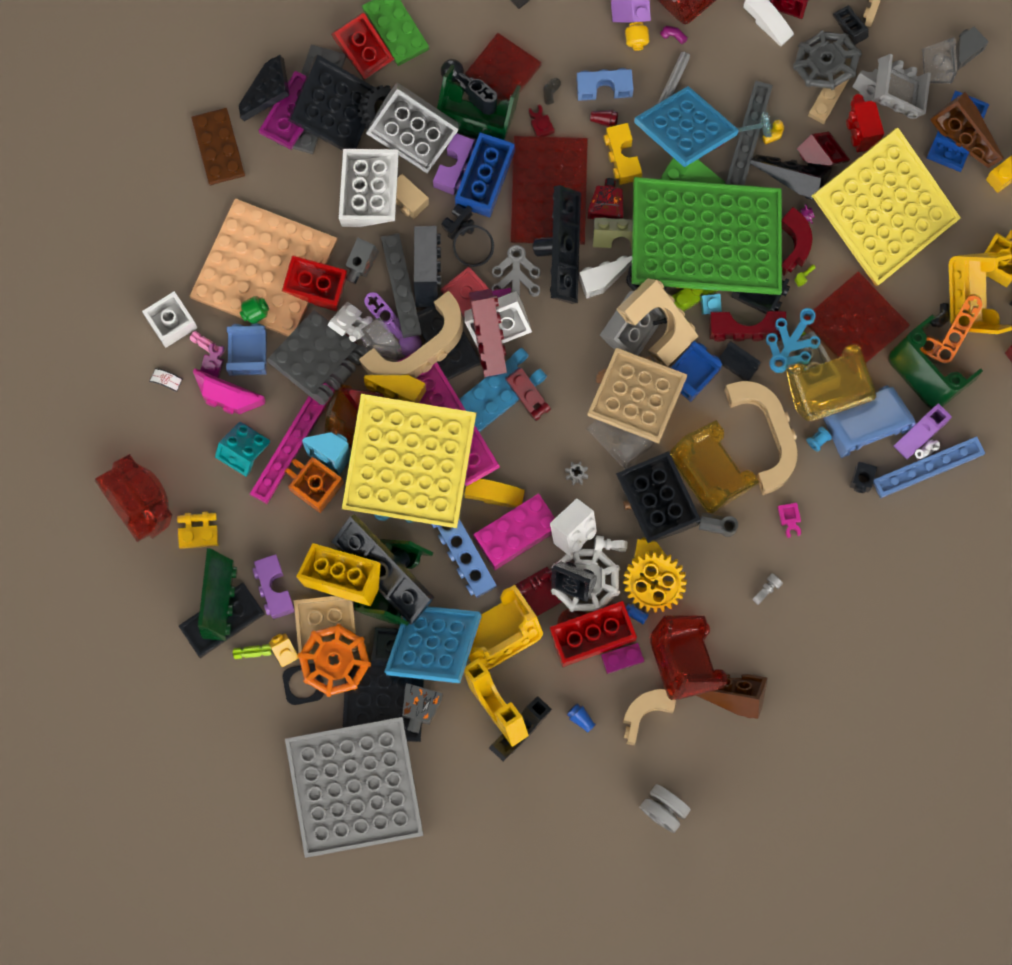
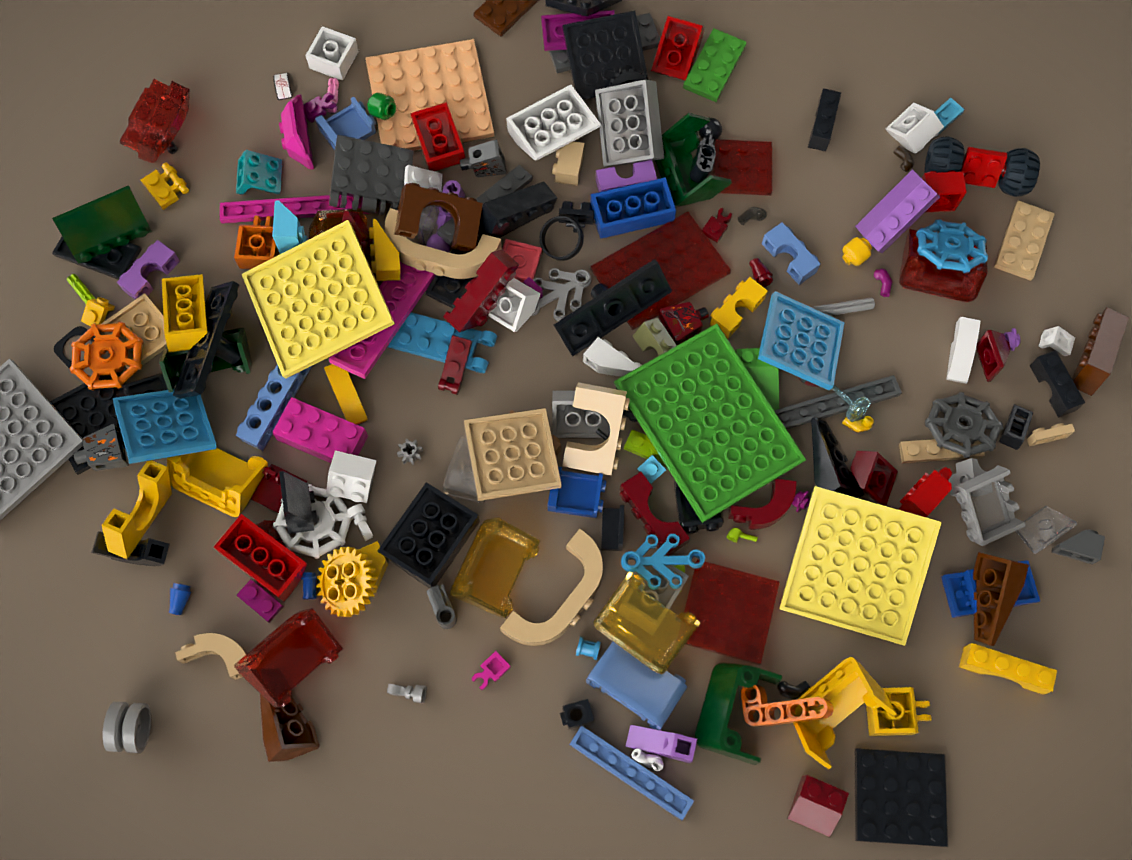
camera: 55 degrees right, 5 degrees down
(410, 304) = (464, 211): none -> reddish brown arch

